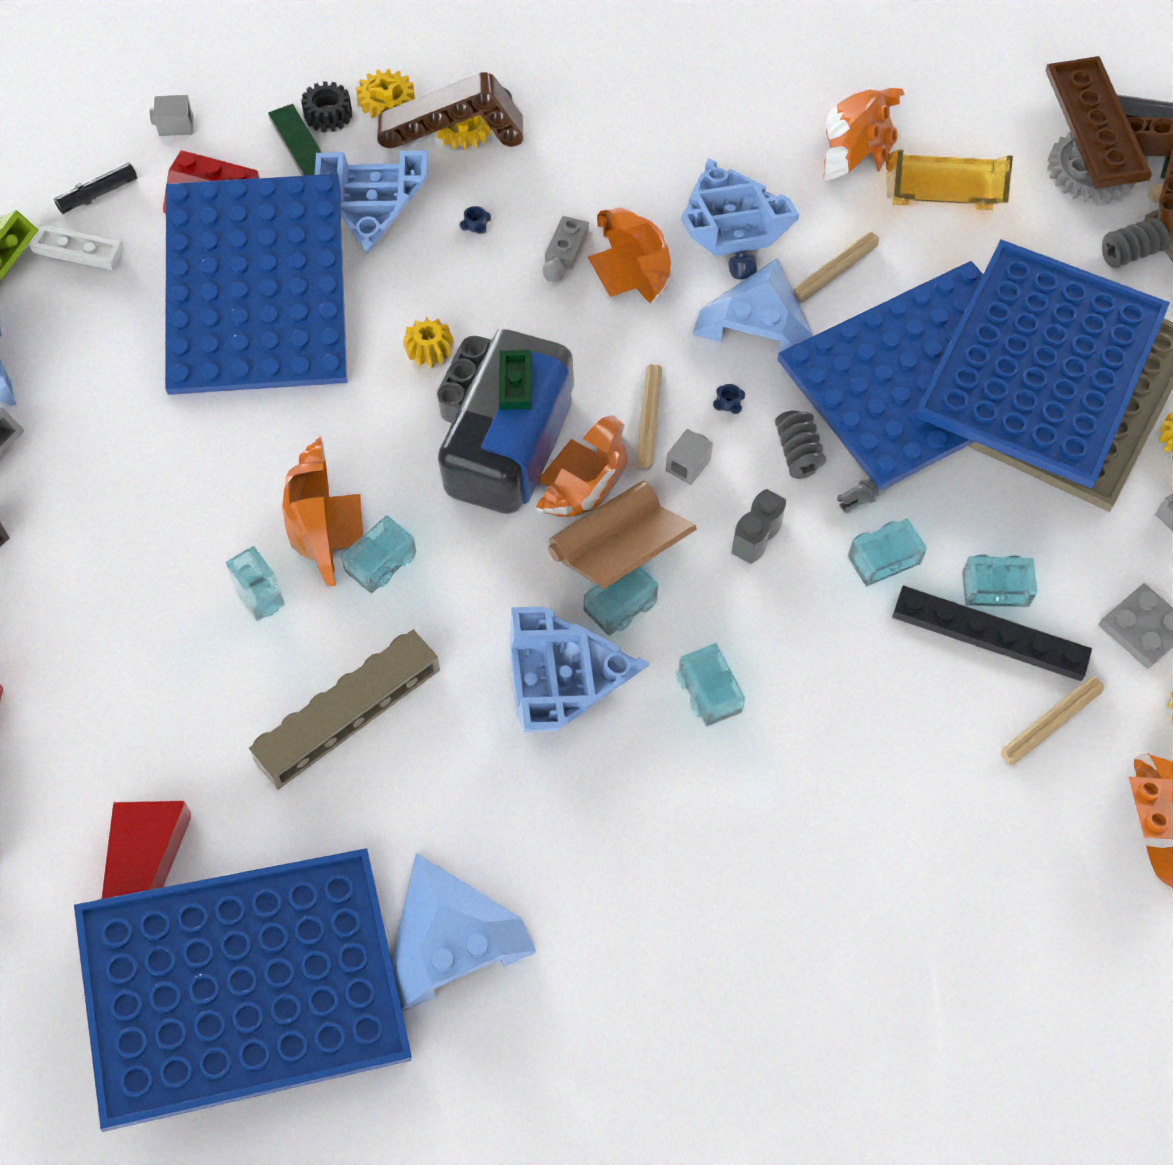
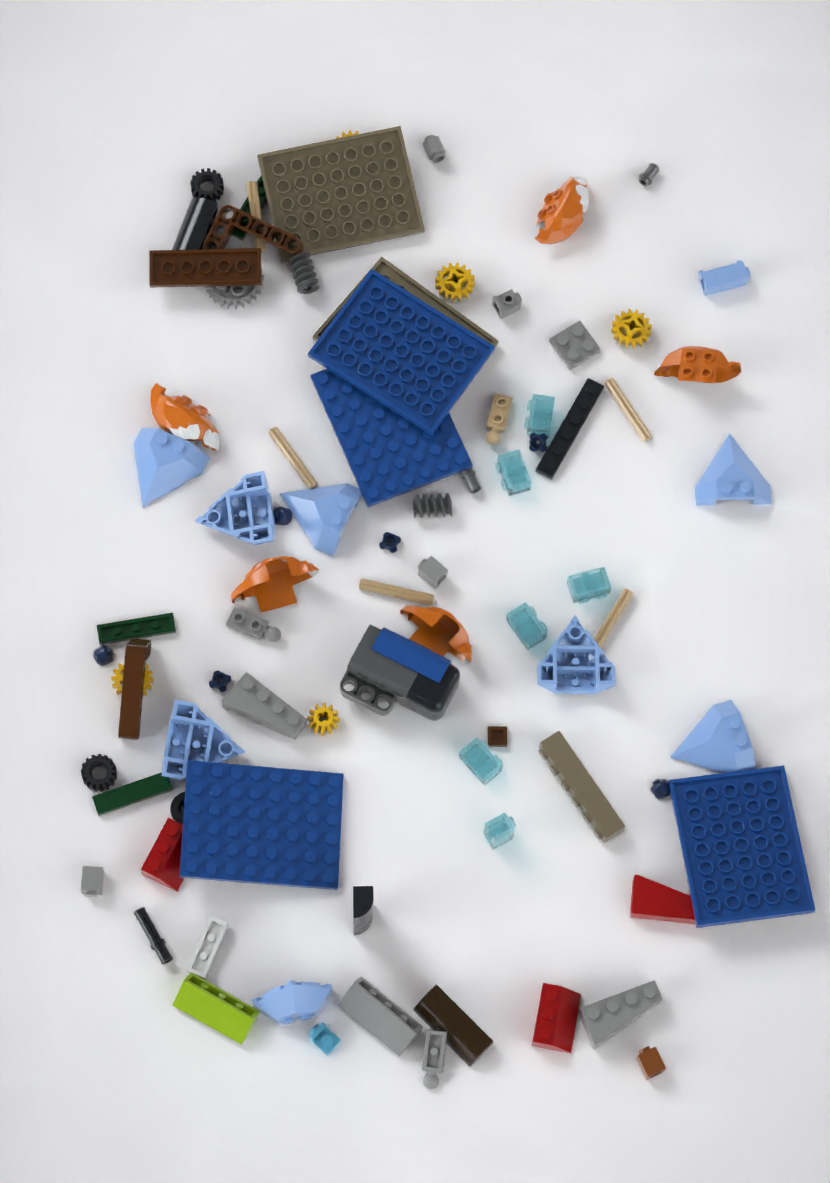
camera: 85 degrees left, 10 degrees up
(108, 392) = (362, 908): none -> black brick
(313, 518) = (449, 793): orange animal -> none
(357, 838) = (660, 788): none -> dark blue piece
(383, 92) = (102, 729): yellow gear -> none
(427, 578) = (497, 736): none -> reddish brown tile
(439, 267) = (257, 702): none -> light grey wedge
(515, 379) = (396, 656): dark green plate -> none
(540, 126) = (136, 628): none -> dark green tile
(619, 536) = (490, 618): medium nougat door -> none
(654, 729) = (613, 616): none -> tan axle
(758, 526) = (492, 542): dark grey brick -> none
(787, 128) = (165, 462): none -> light blue wedge
(948, 179) = (230, 372): clear yellow windscreen -> none
(951, 583) = (533, 442): none -> dark blue plate
(971, 915) = (732, 478): none -> light blue wedge
(978, 523) = (498, 418): none -> tan plate

